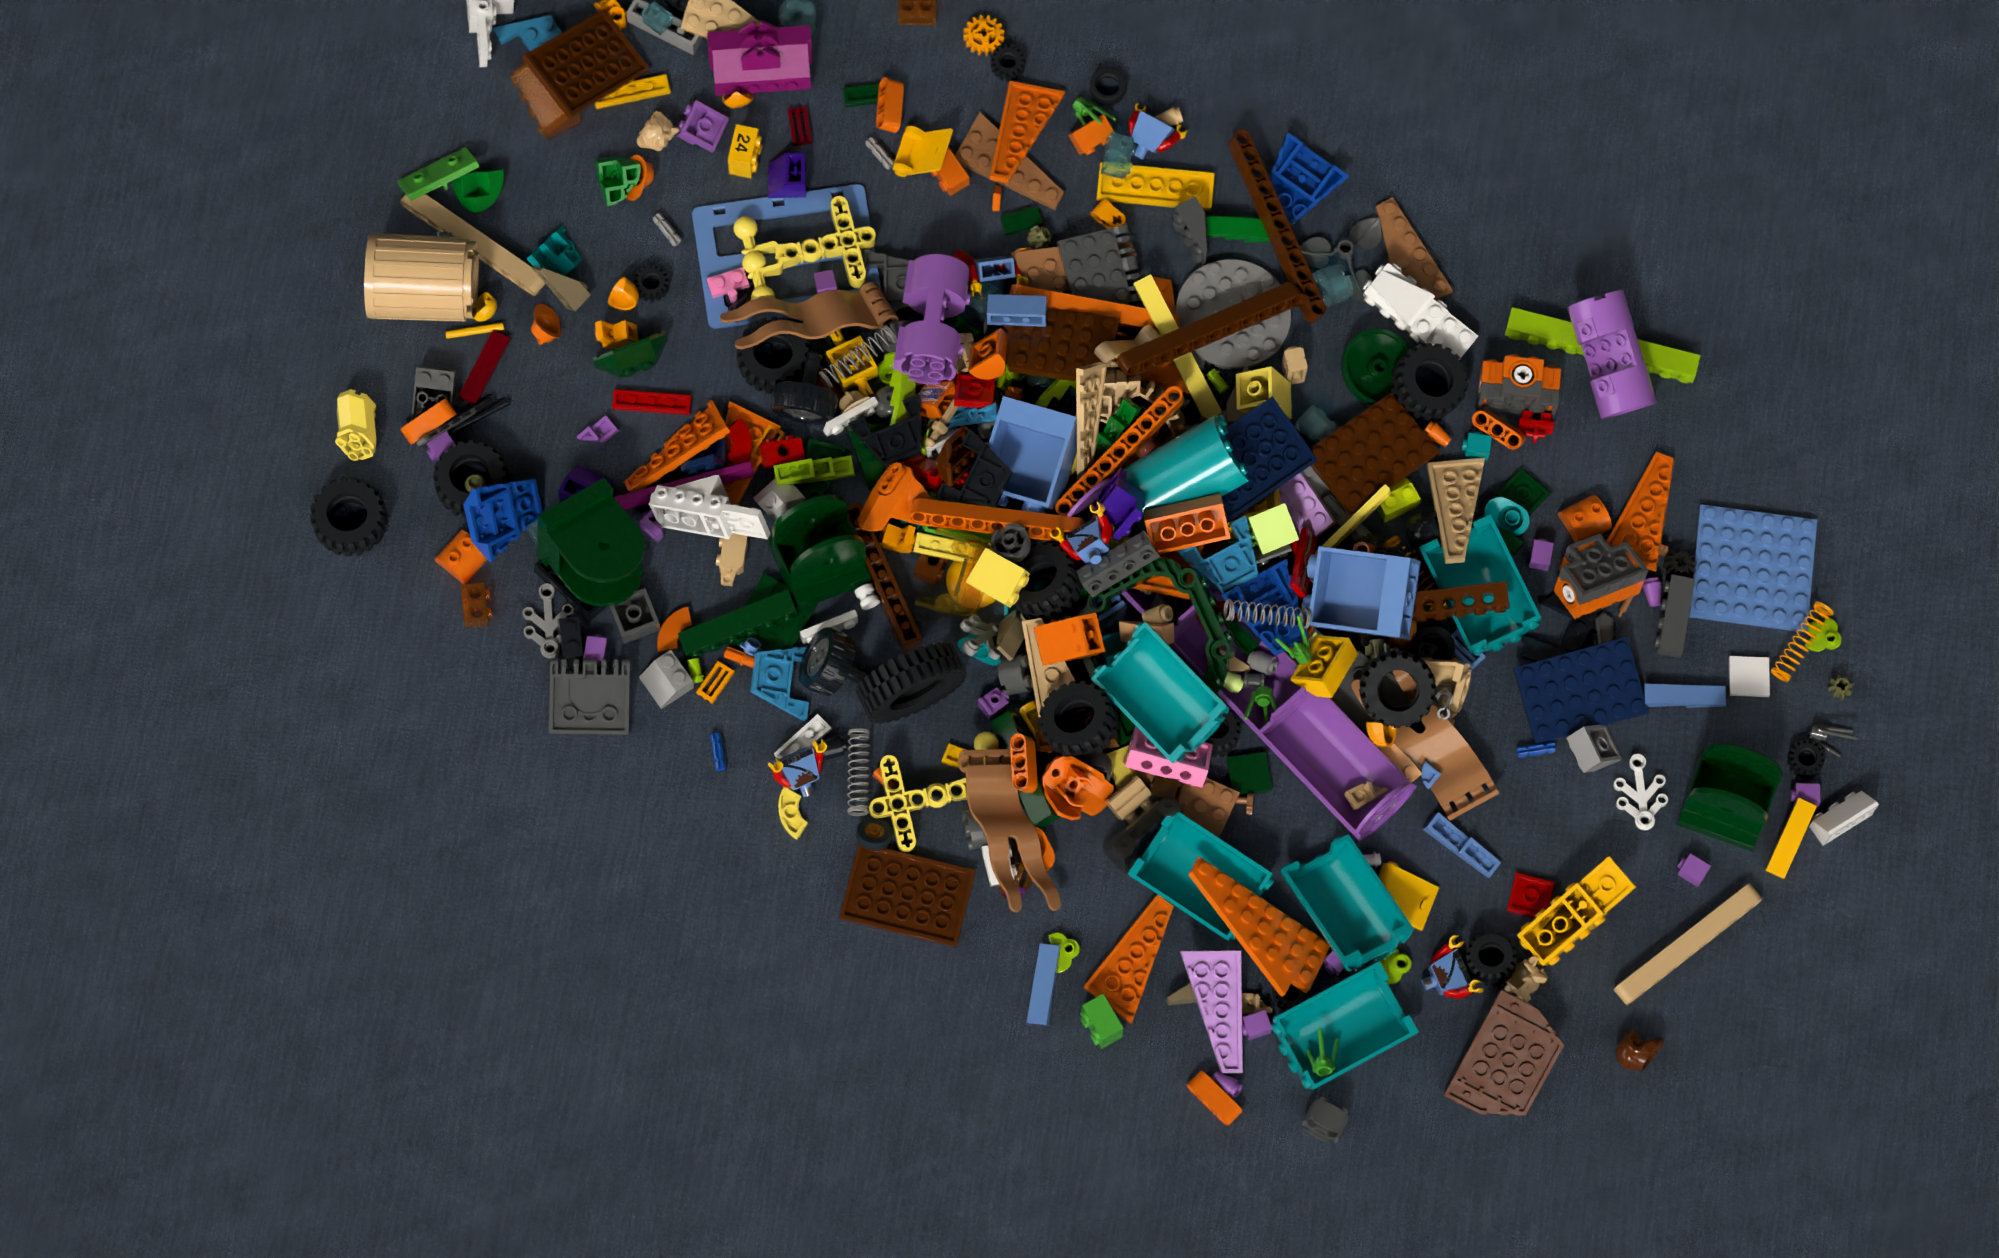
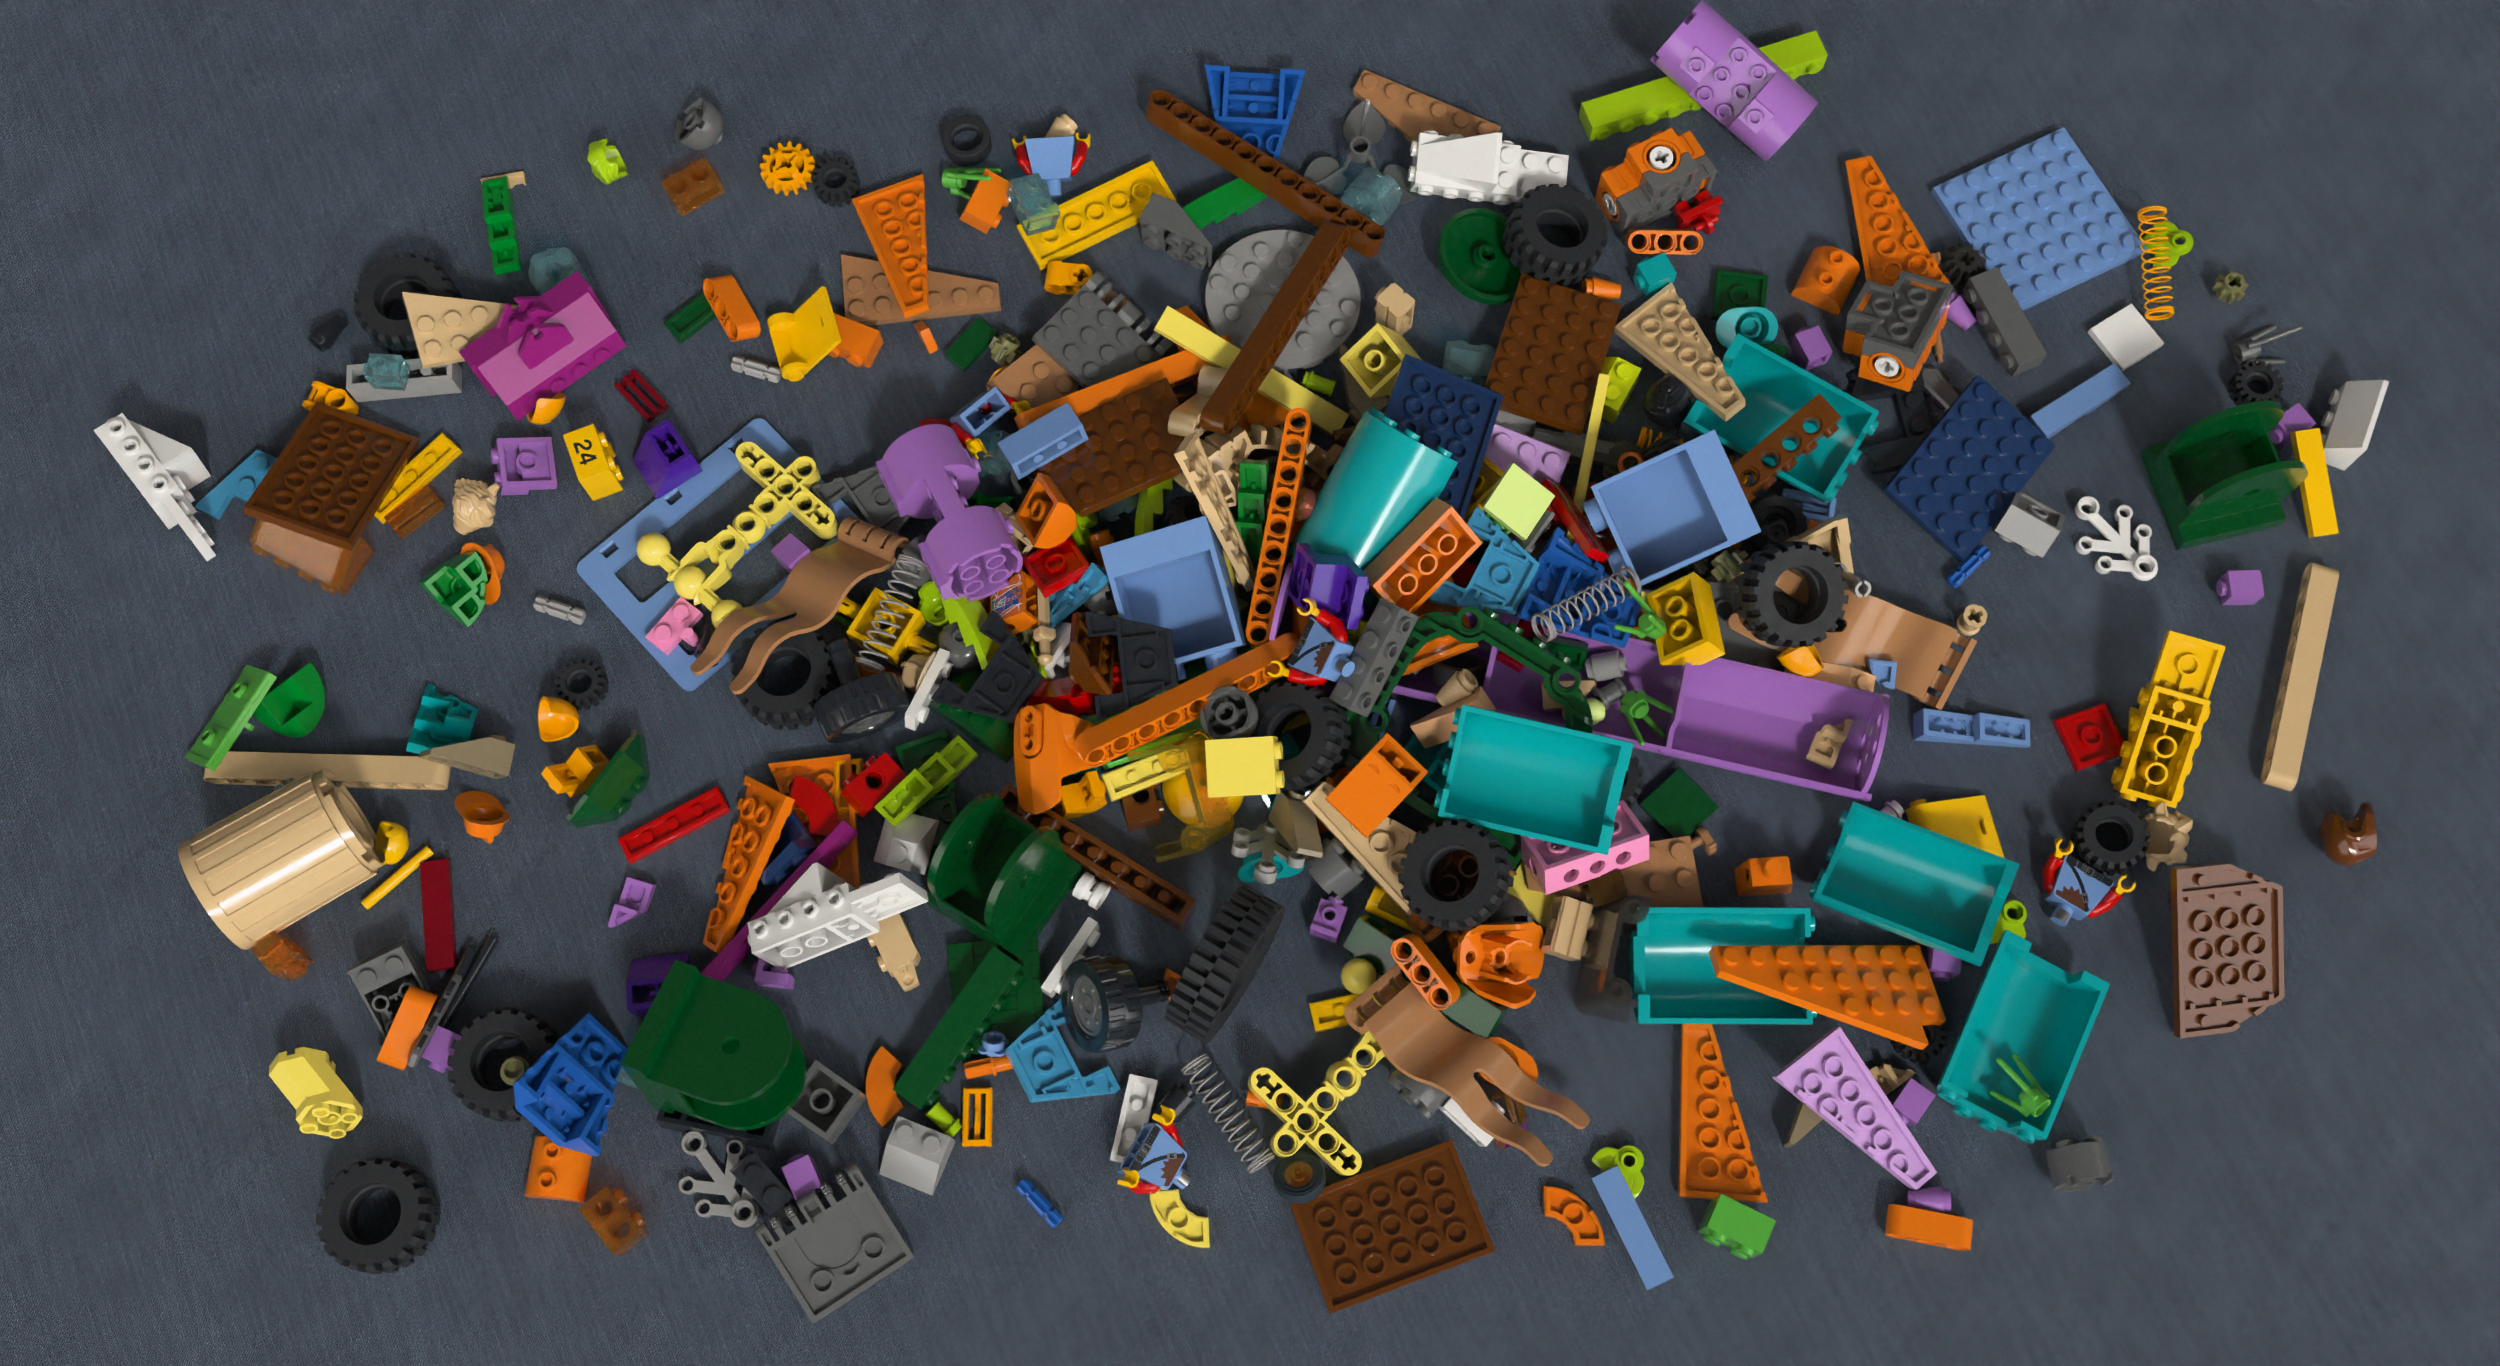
camera: 30 degrees left, 0 degrees up
(384, 335) = (282, 956): none -> clear orange brick
(605, 112) = (411, 509): none -> clear orange tile
(1017, 958) = (1574, 1214): none -> orange tile
(1268, 846) = (1766, 876): none -> orange torso
(1516, 778) = (1978, 617): none -> tan bush

